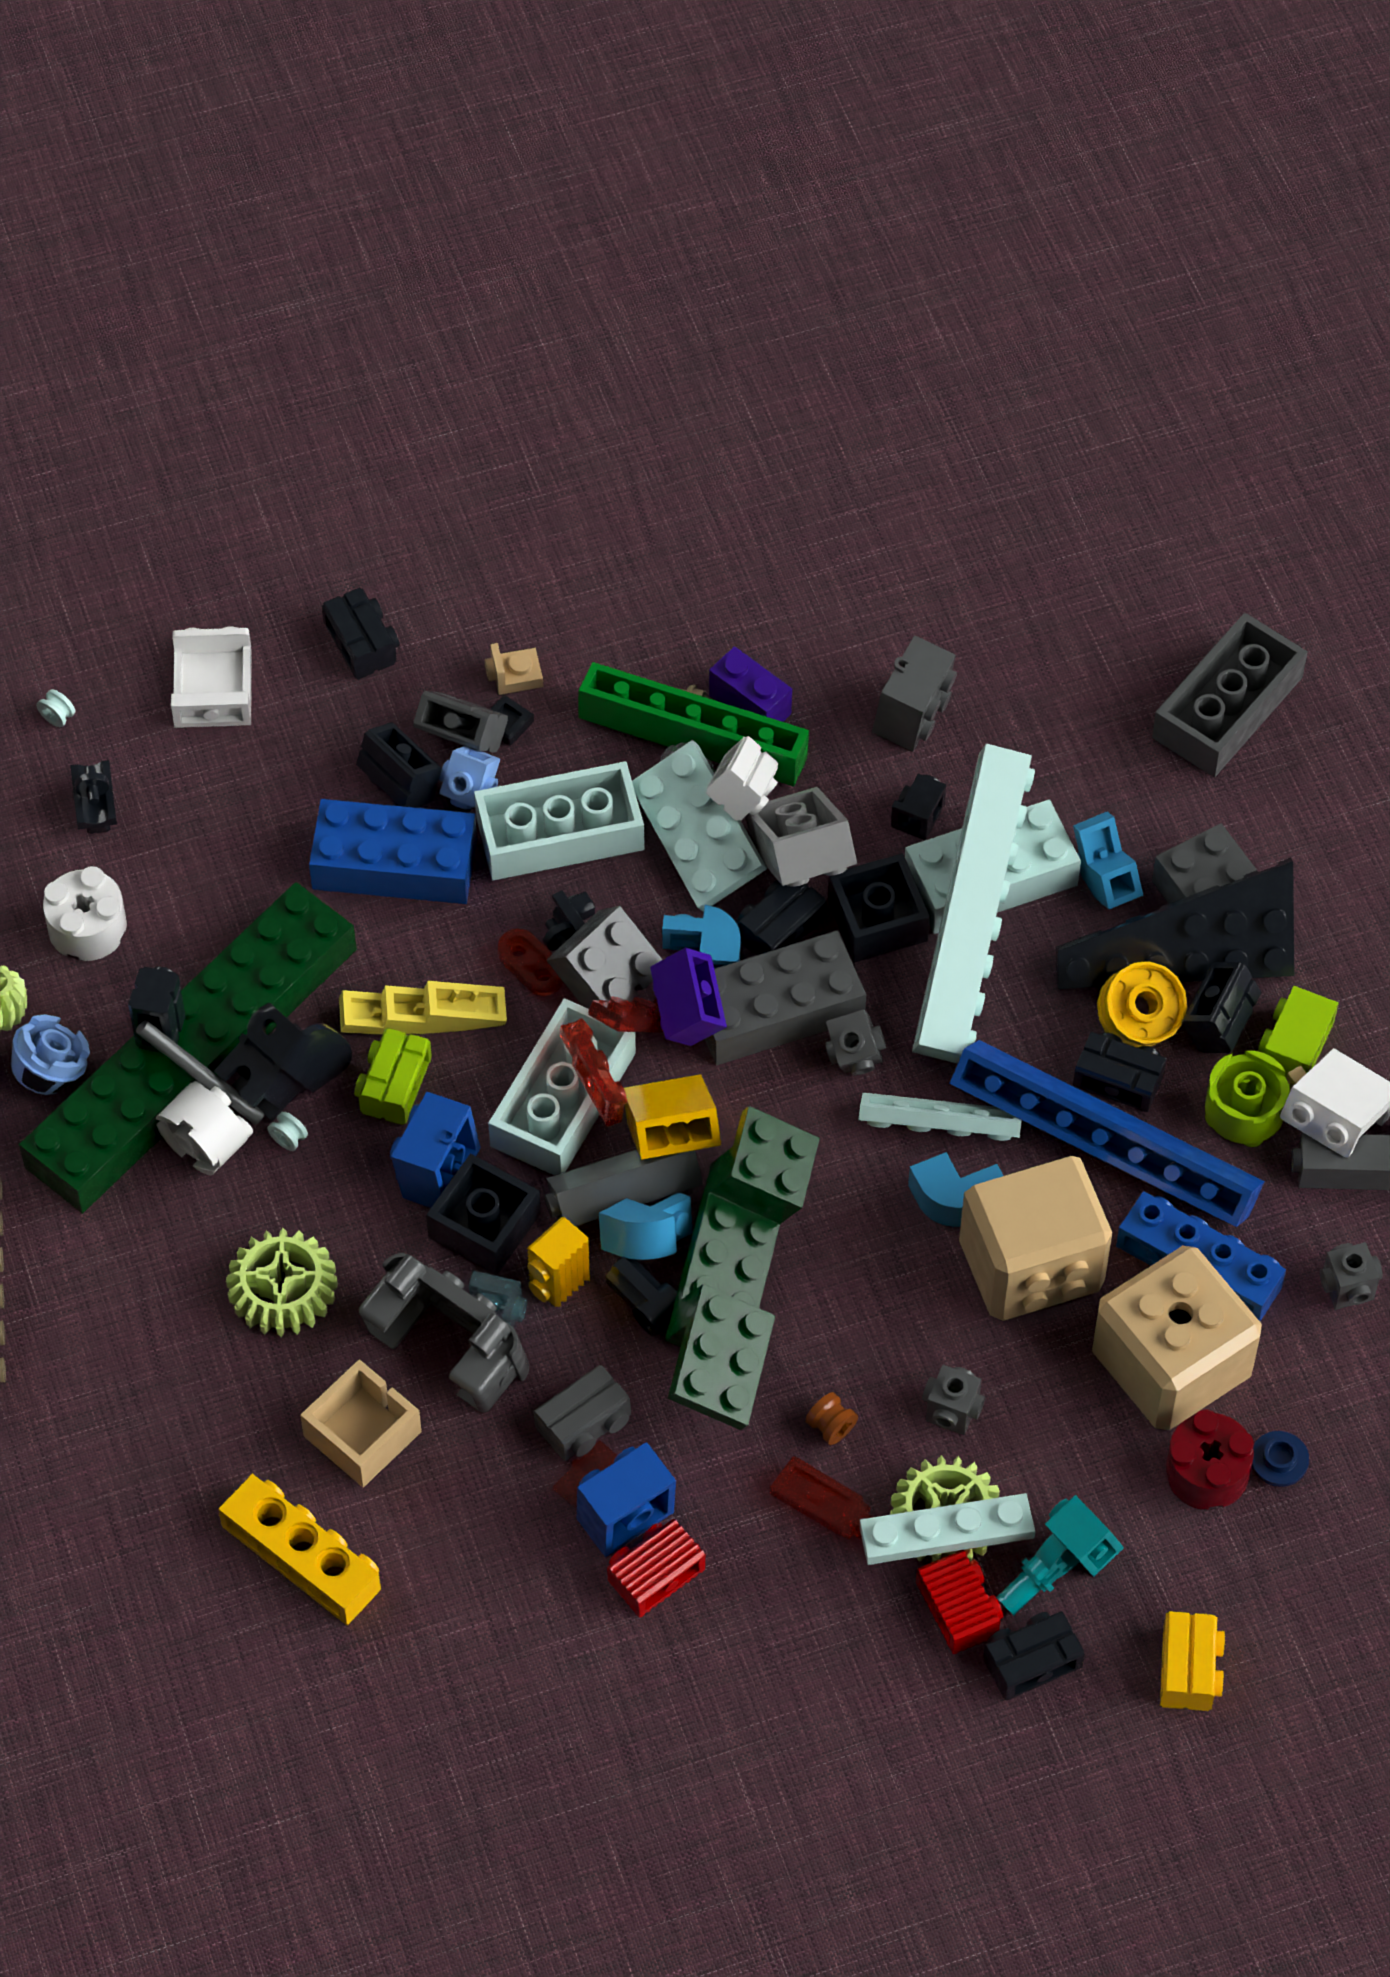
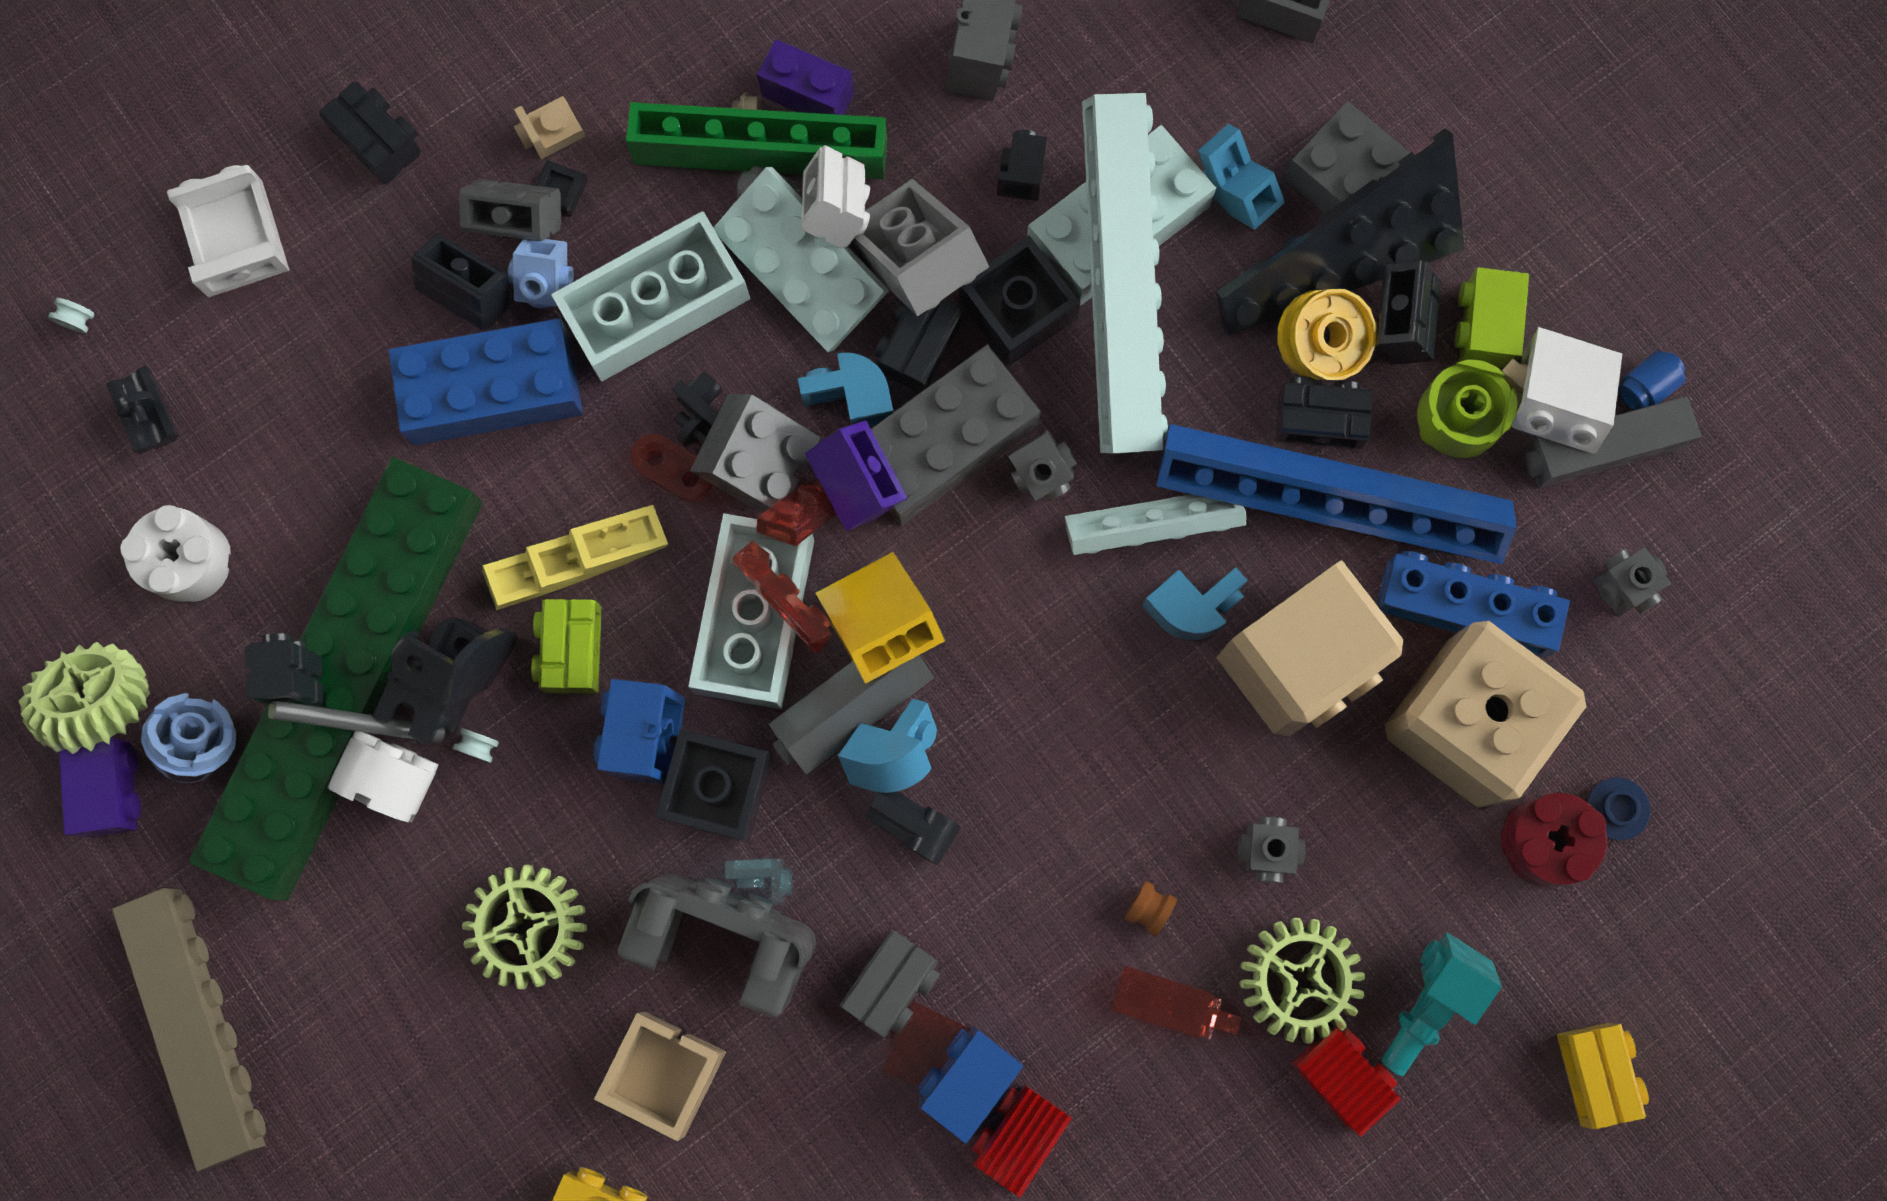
camera: 15 degrees left, 20 degrees up
(558, 1262) = (811, 824): yellow brick -> none
(728, 1263) = (992, 787): dark green bracket -> none
(947, 1529) = (1317, 1015): light aqua plate -> none
(1033, 1654) = (1440, 1117): black brick -> none

